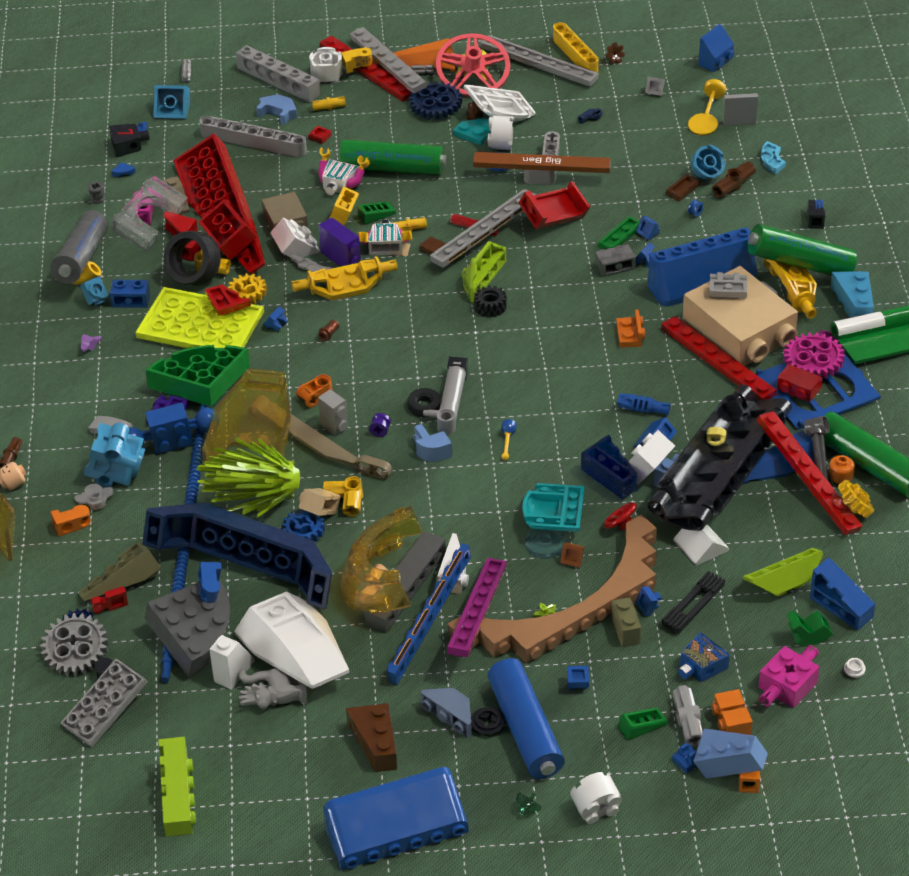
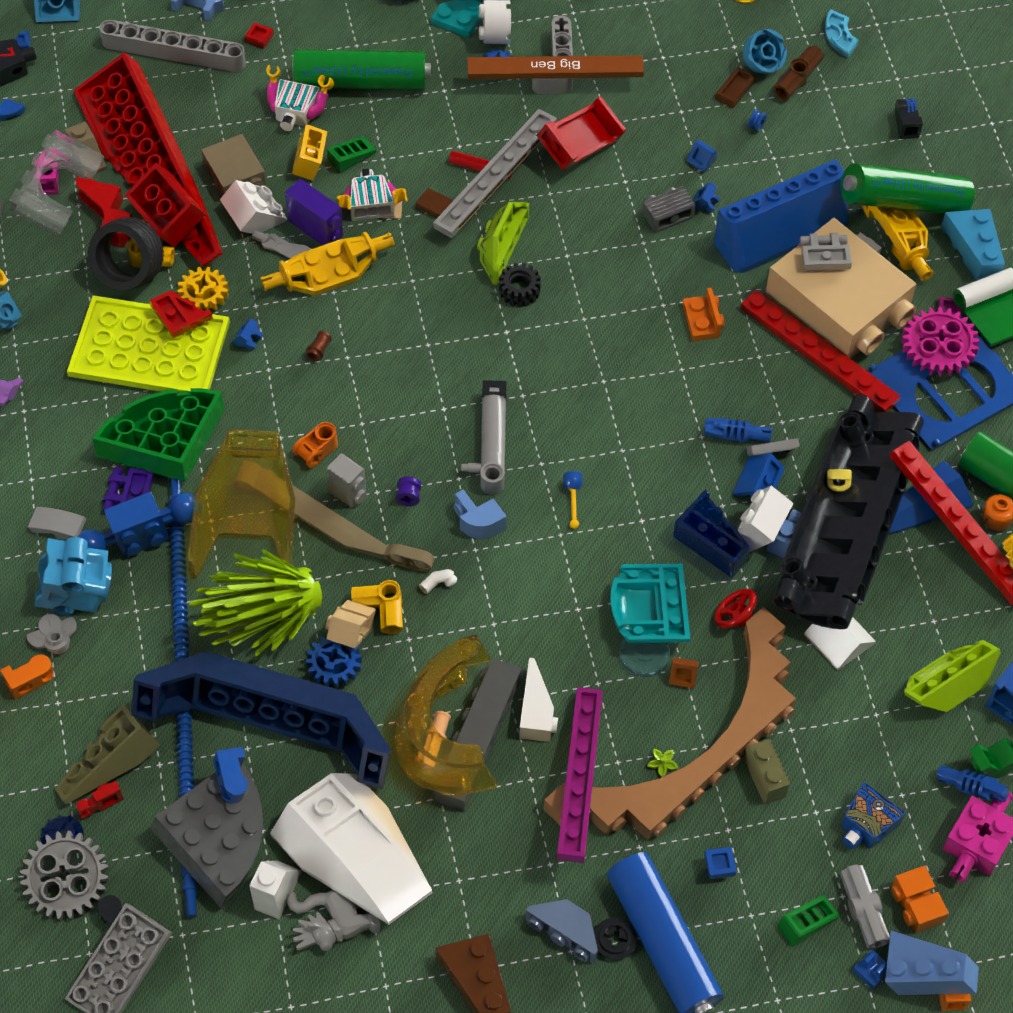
camera: 10 degrees left, 15 degrees up
(130, 293) = (49, 309): blue brick -> none
(391, 482) = (446, 576): none -> white arm
(412, 224) = (398, 171): yellow pin -> none
(420, 394) = (455, 436): black tyre -> none
(425, 619) = (514, 796): blue plate -> none
(619, 234) = (667, 167): green tile -> none
(647, 601) = (788, 735): blue tile -> none
(671, 415) = (772, 447): none -> light grey tile
(676, 619) = (861, 701): black container -> none
(792, 640) = (973, 783): none -> blue hinge
(799, 383) = (927, 384): red brick -> none
(817, 429) = (966, 460): dark grey axle -> none

